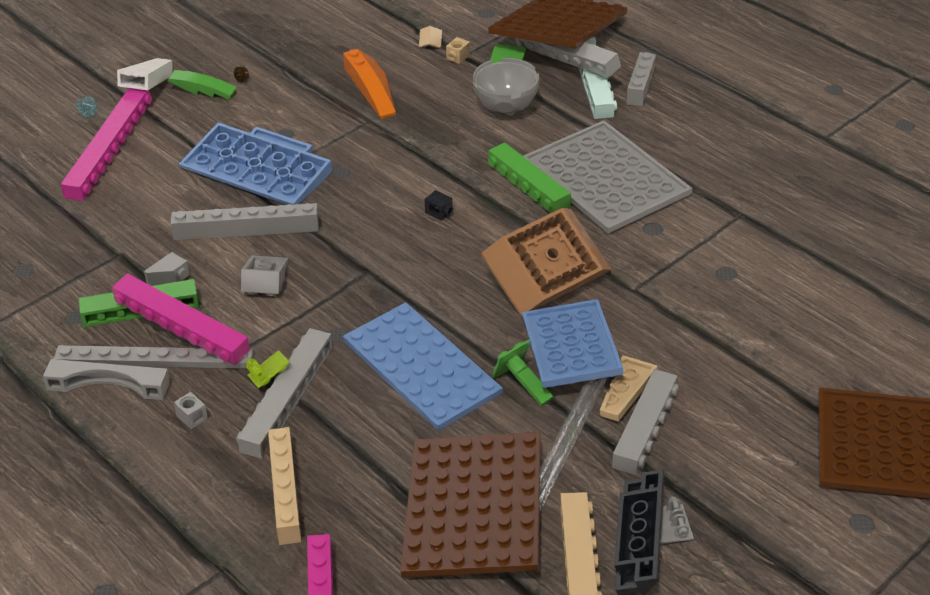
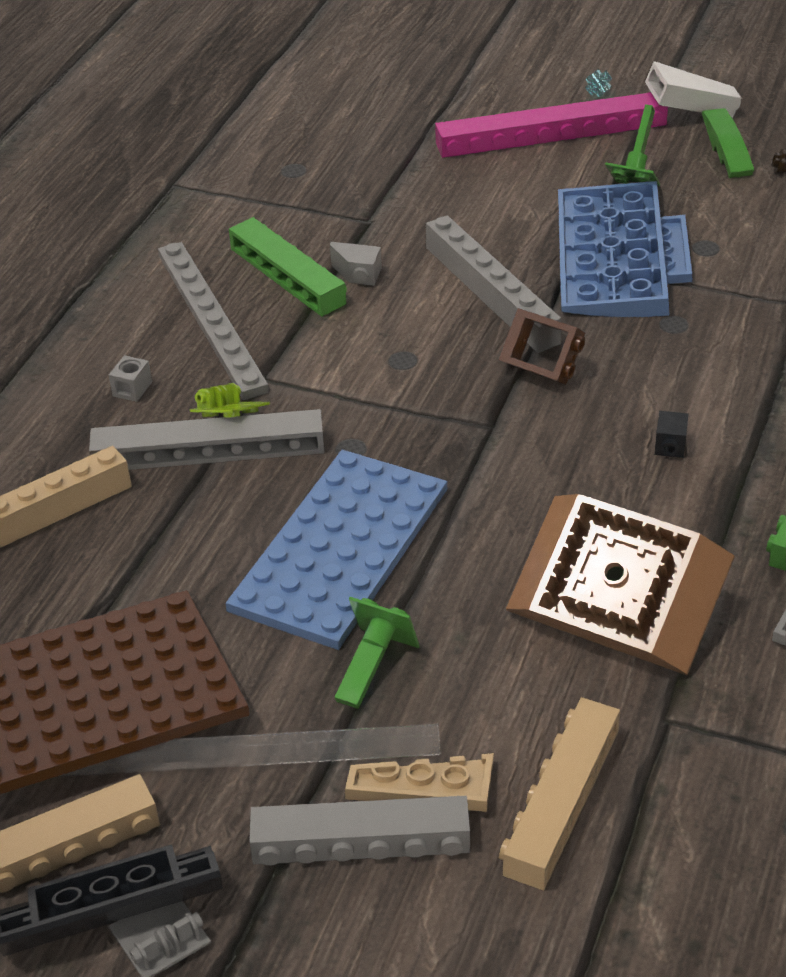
camera: 65 degrees right, 0 degrees up
(68, 375) = (159, 322): light grey arch -> none
(181, 319) = (257, 302): dark pink brick -> none
(194, 118) = (636, 160): none -> bright green piece
(263, 275) = (407, 336): light grey slope -> none
(317, 227) = (518, 338): none -> reddish brown window
(571, 343) = (464, 678): medium blue plate -> none
(664, 339) = (560, 794): none -> tan brick

